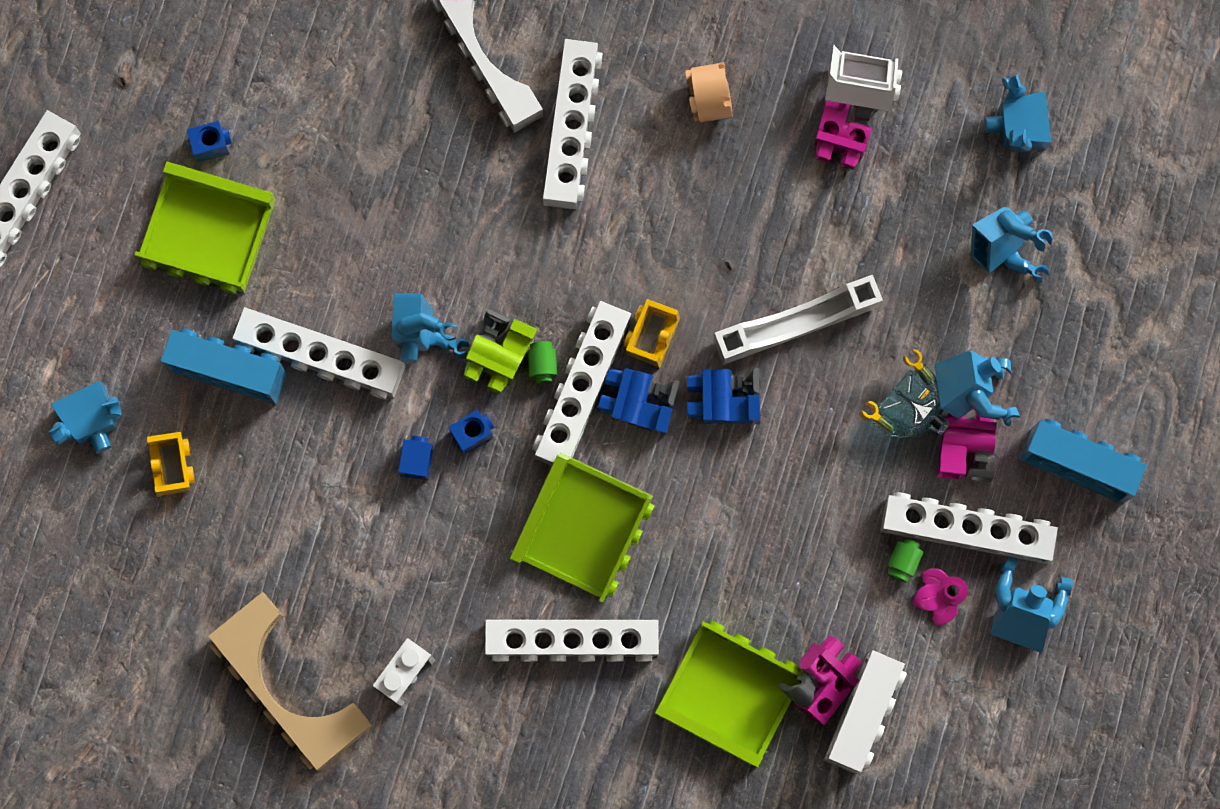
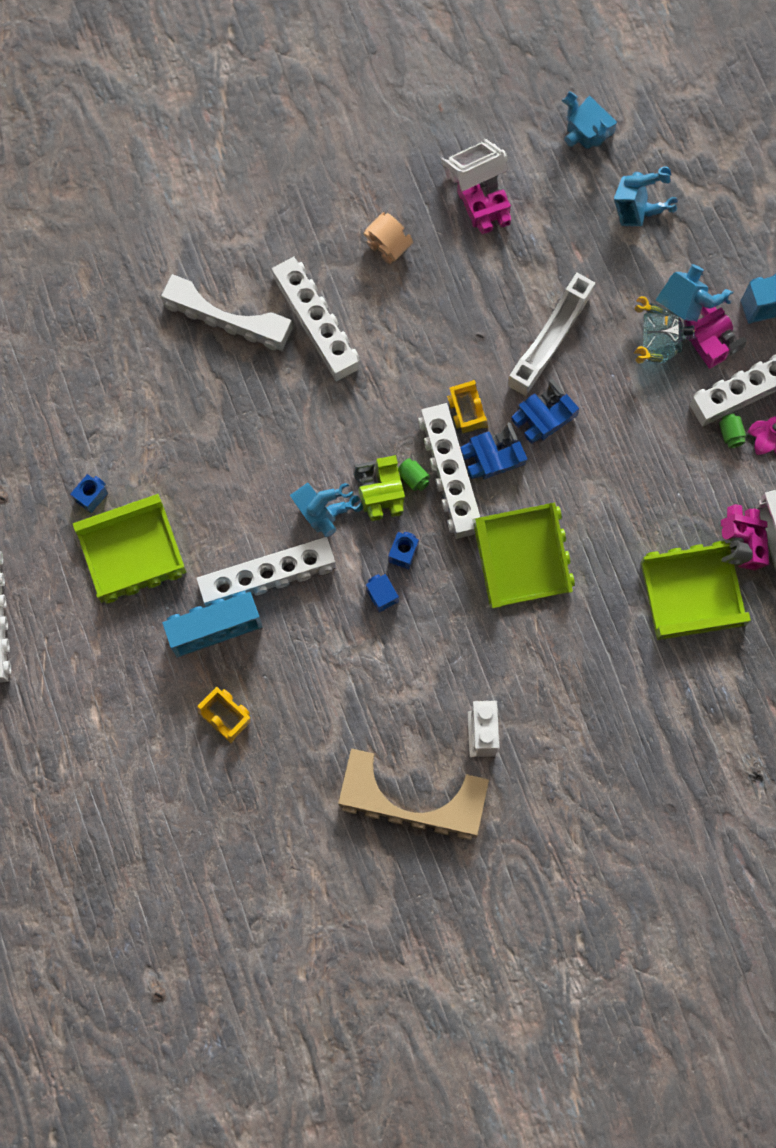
camera: 35 degrees left, 5 degrees down
(86, 417) = (146, 723): dark azure torso -> none
(499, 630) = (612, 592): white brick -> none

